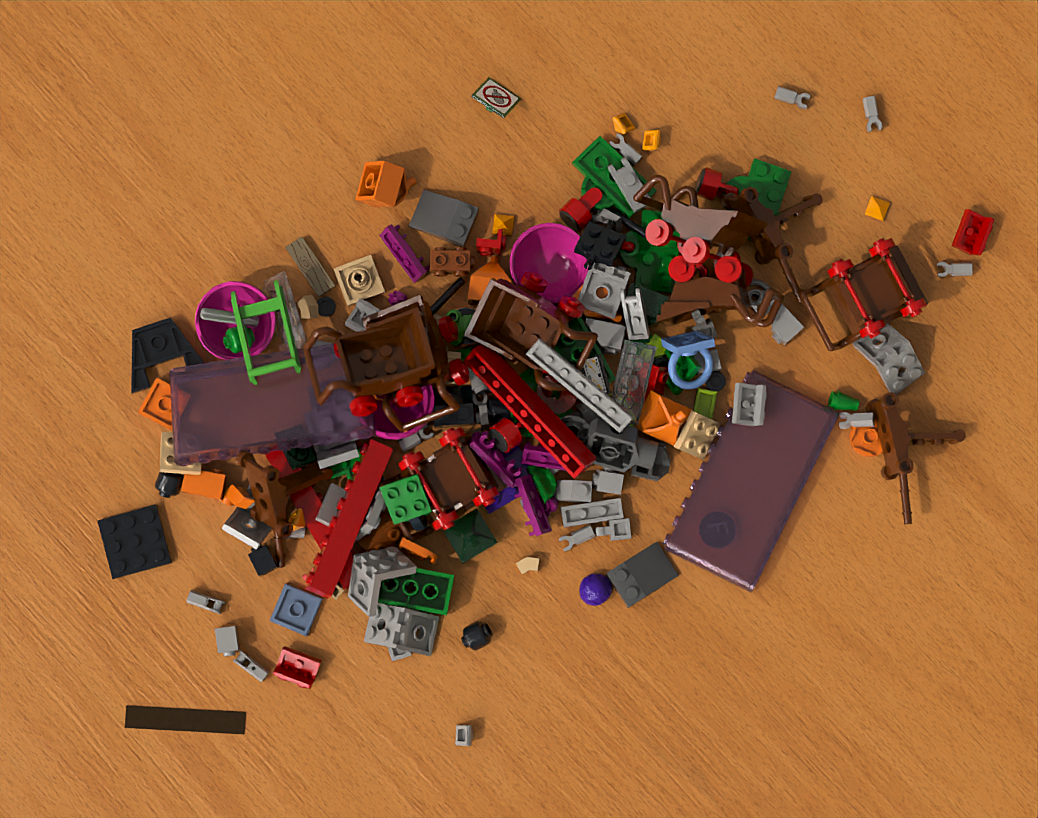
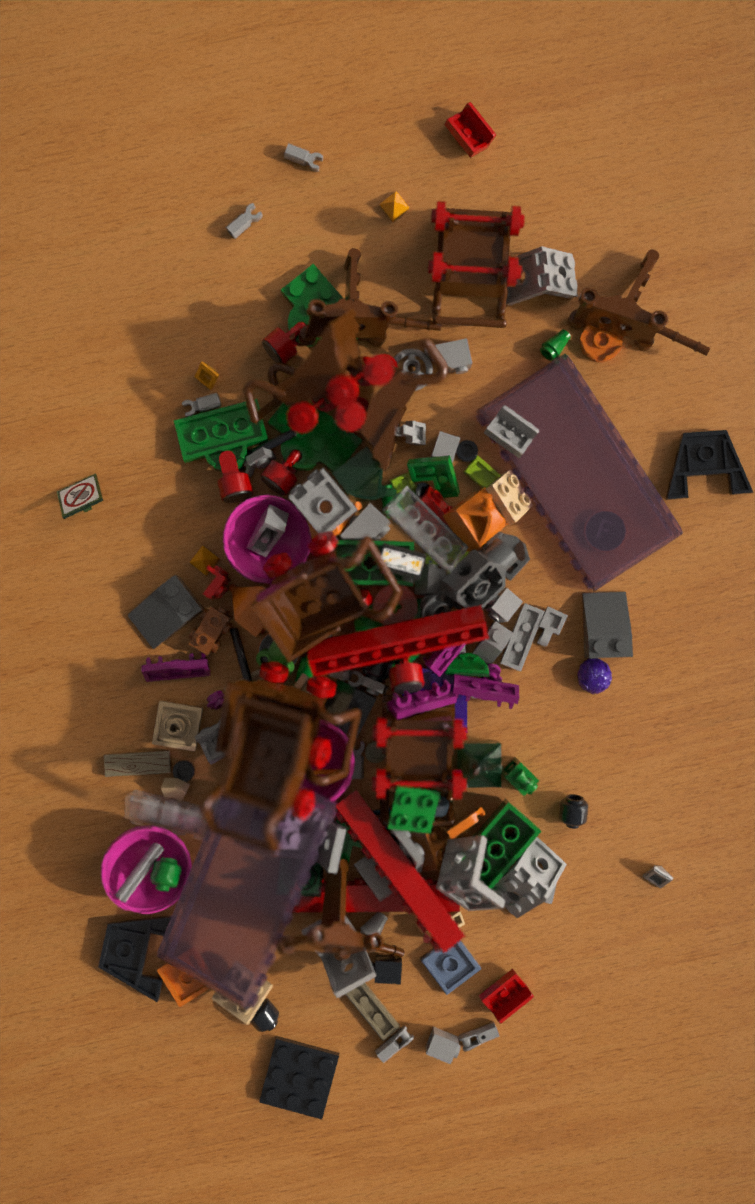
camera: 60 degrees left, 5 degrees up
(185, 720) = (491, 1124): dark brown sticker -> none
(206, 484) = (285, 980): orange brick -> none
(223, 566) = (373, 1011): none -> dark tan tile
(237, 496) = (315, 962): orange piece -> none
(260, 308) = (147, 843): bright green piece -> none
(297, 519) = (370, 919): light orange slope -> none
(383, 184) = (99, 650): orange piece -> none
(429, 448) = (374, 753): none -> olive tile
(479, 574) = (520, 777): none -> green brick
(528, 564) = (535, 724): tan piece -> none
(556, 260) = (268, 530): none -> light grey slope
(578, 537) = (537, 662): light grey bar -> none
(579, 385) = (403, 581): light grey tile -> none
(599, 244) = (278, 481): black plate -> none
(623, 124) = (175, 393): light orange slope -> none
(628, 183) = (235, 421): light grey hinge -> none
(635, 315) = (365, 488): light grey hinge -> none
(688, 345) = (422, 455): medium blue tile -> none
(826, 574) = (706, 455): none -> black wing
(857, 420) = (581, 341): light grey bar -> none
(956, 269) = (494, 167): light grey bar -> none

